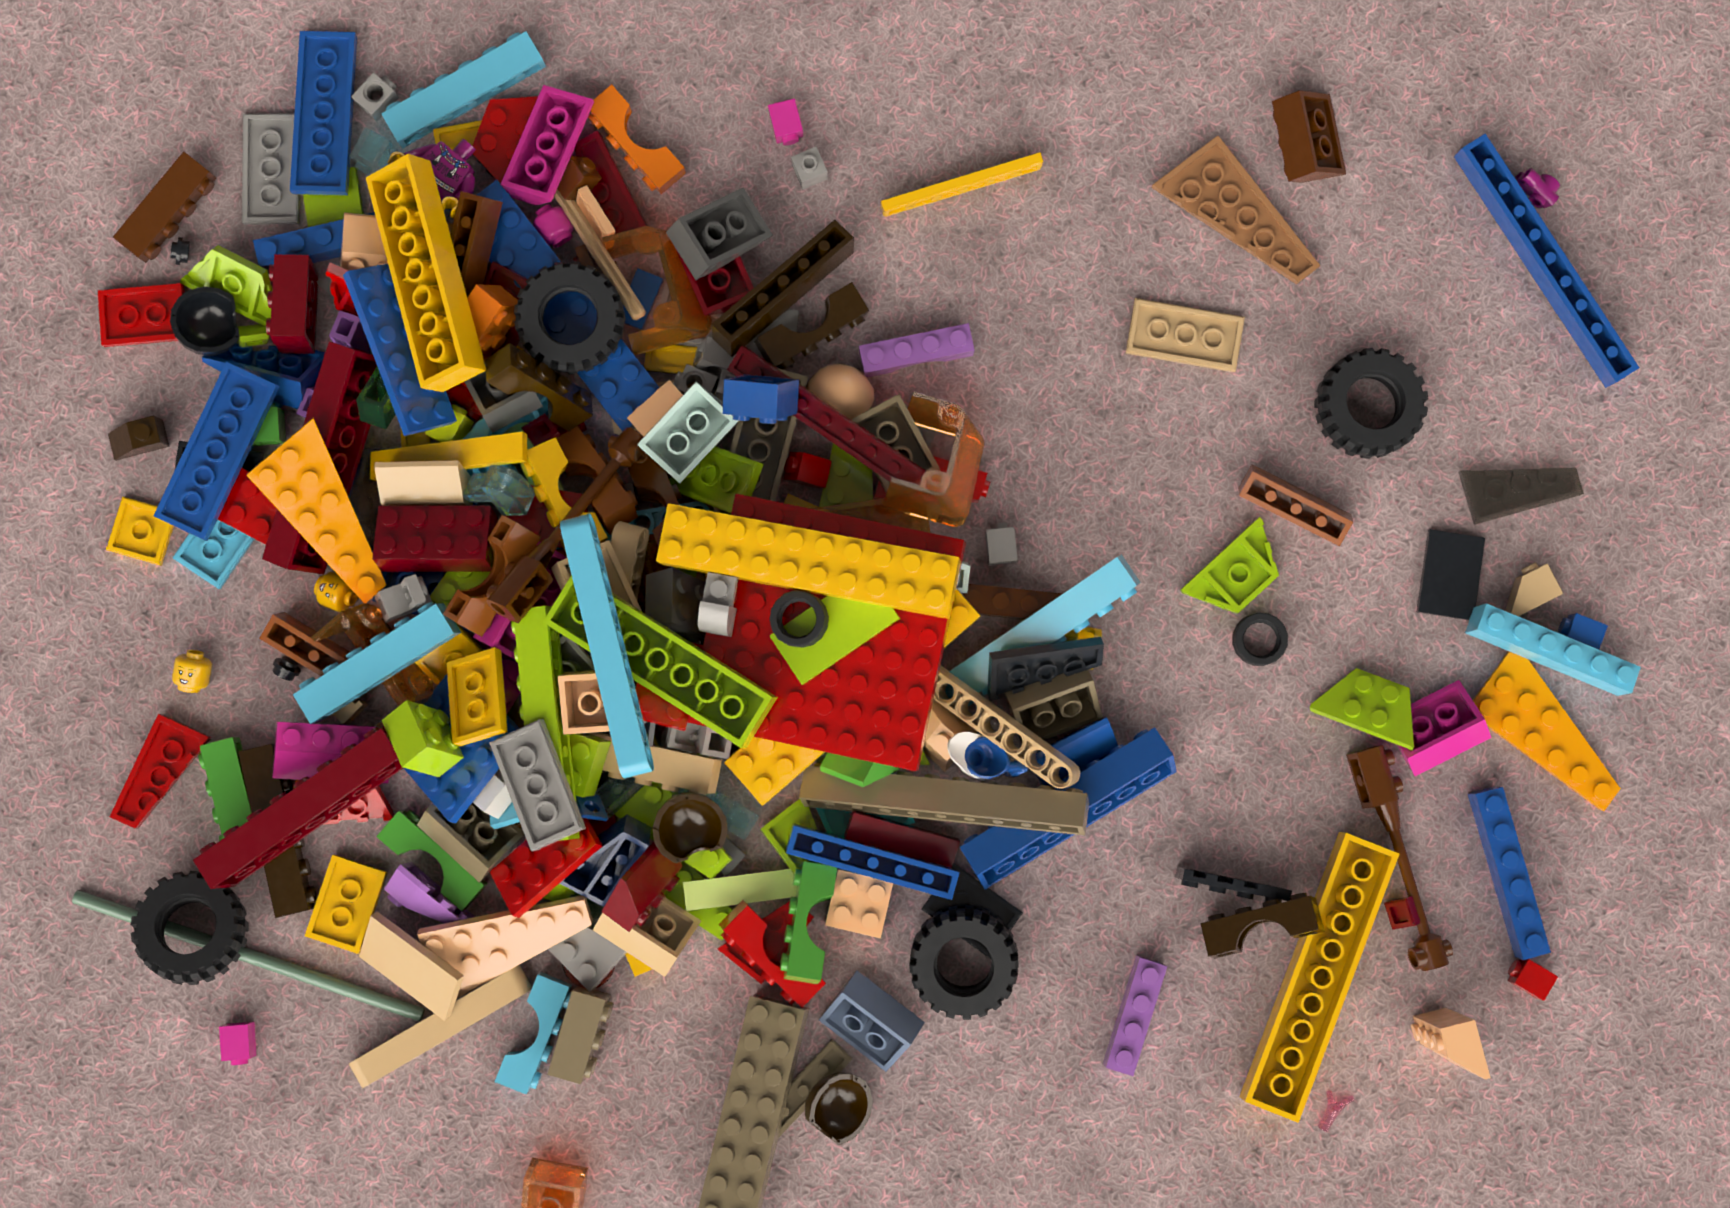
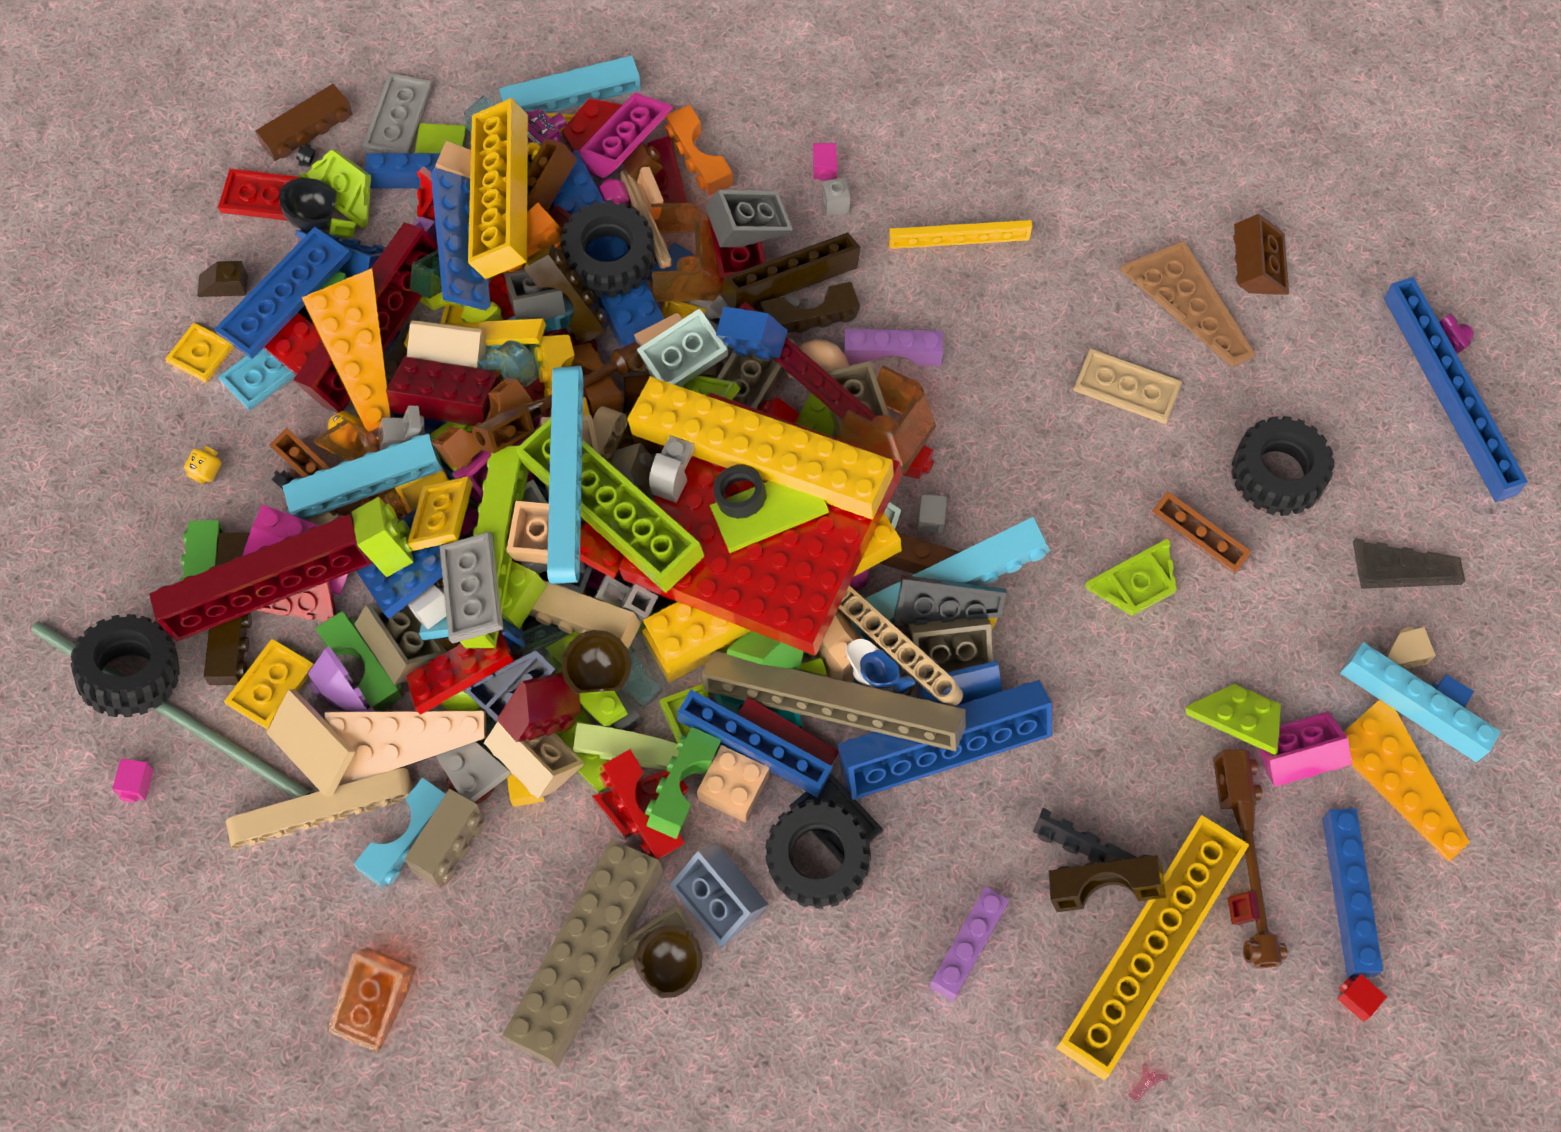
camera: 15 degrees right, 20 degrees down
(159, 765) = (147, 535): red wing -> none
(293, 304) = (383, 204): dark red brick -> none
(323, 113) = (452, 83): blue plate -> none
(363, 95) = (497, 77): light grey brick -> none
(1281, 639) = (1138, 654): black tyre -> none
(1450, 574) = (1333, 624): black tile -> none
(1453, 1038) = (1274, 1024): light nougat slope -> none

